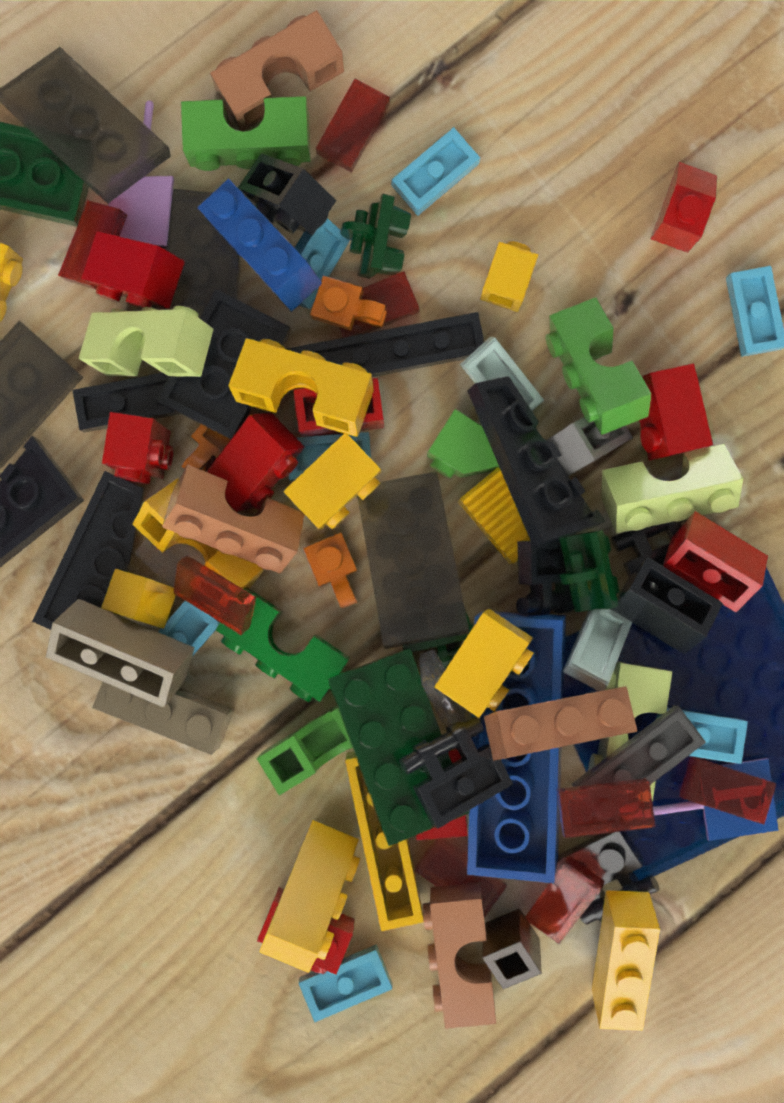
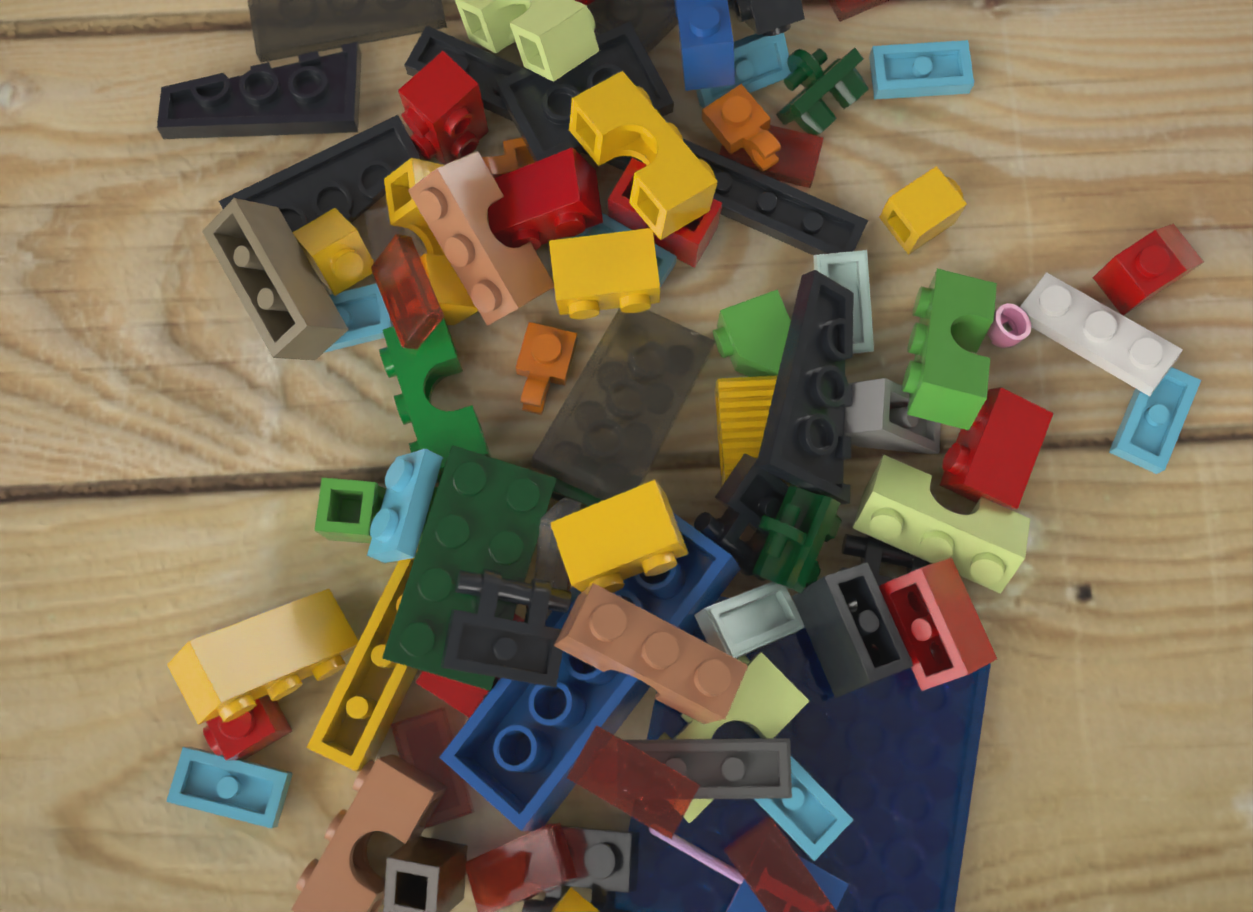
camera: 35 degrees right, 10 degrees down
(185, 718) = (277, 384): dark tan brick -> none
(324, 737) = (404, 507): none -> medium azure plate
(629, 314) = (1017, 320): none -> bright pink hinge
(683, 281) = (1100, 334): none -> white plate

